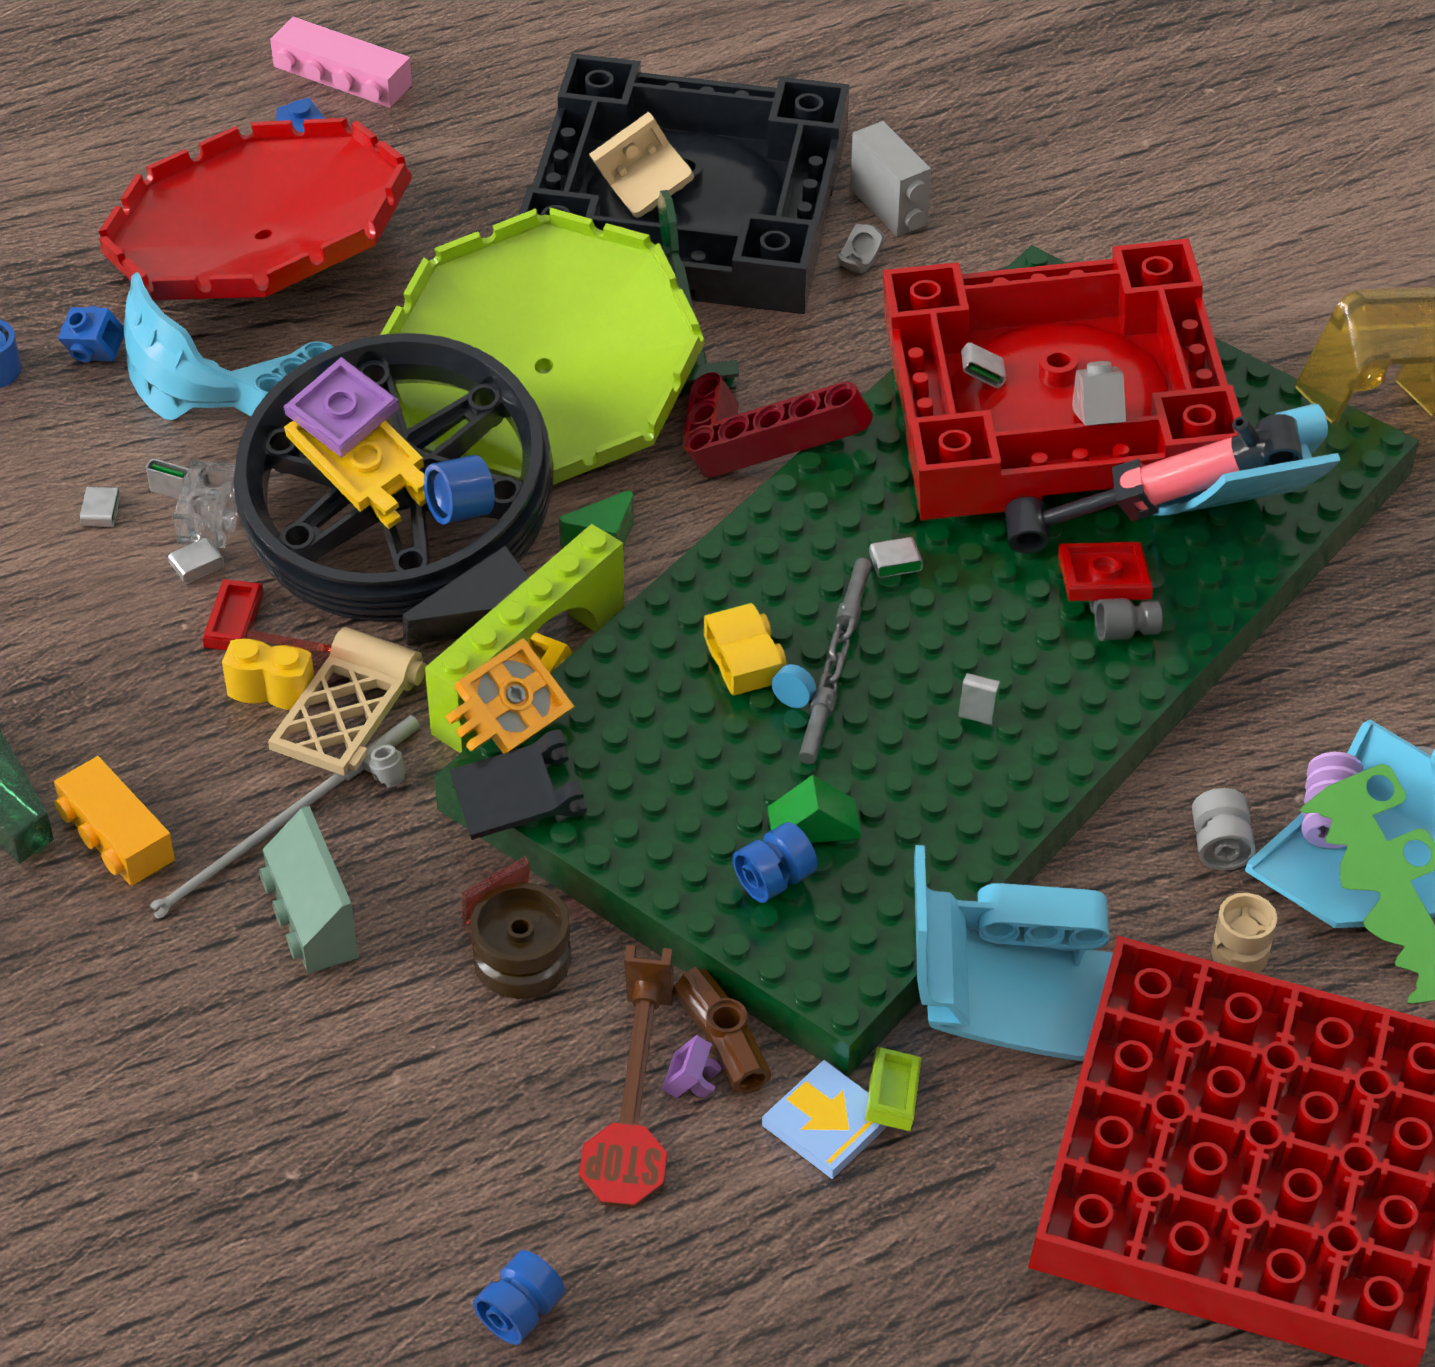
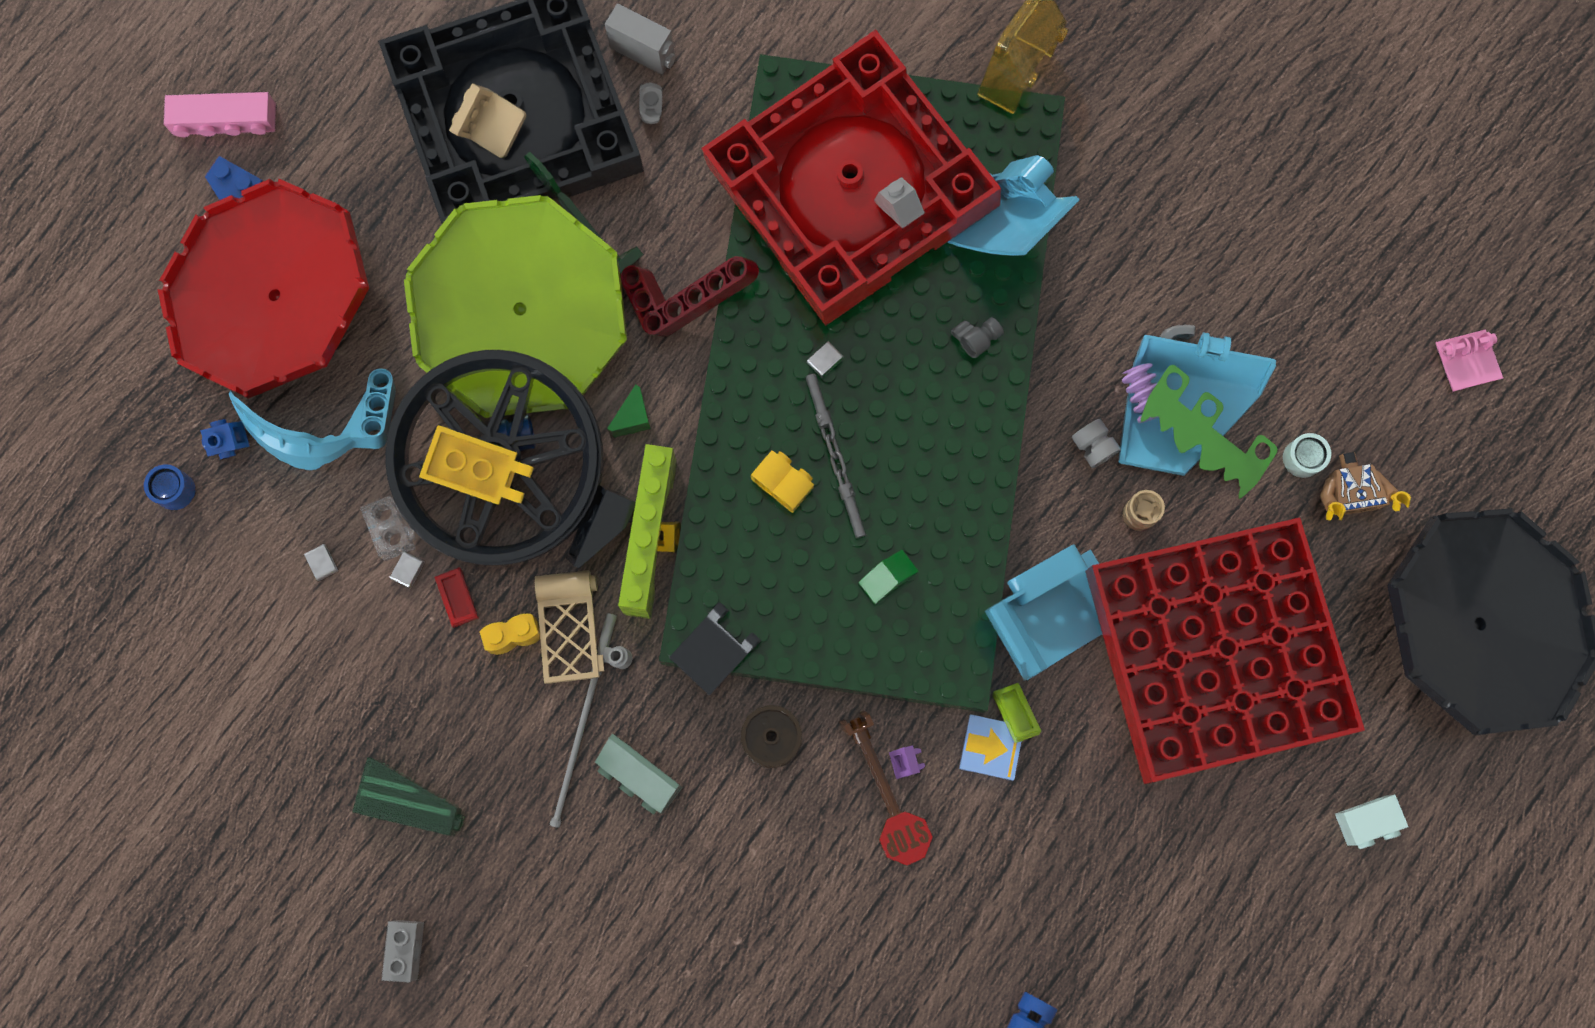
camera: 30 degrees left, 30 degrees up
(113, 821) = (491, 785): light orange brick -> none
(165, 478) = (349, 521): flat silver piece -> none
(289, 641) = (509, 604): clear red piece -> none
(341, 407) = (446, 446): medium lavender tile -> none
(459, 489) = (555, 466): blue piece -> none
(509, 699) = (676, 598): light orange piece -> none
(513, 873) = (739, 714): clear red piece -> none
(525, 1291) = (906, 953): blue wheel -> none
(735, 1046) = (925, 736): reddish brown piece -> none
(771, 864) = (890, 624): blue wheel -> none
(793, 686) = (826, 491): dark azure tile -> none
(979, 698) = (933, 444): flat silver piece -> none
(983, 365) = (805, 195): flat silver piece -> none
(1104, 571) = (950, 307): red tile -> none
(1141, 487) = (970, 245): black piece -> none

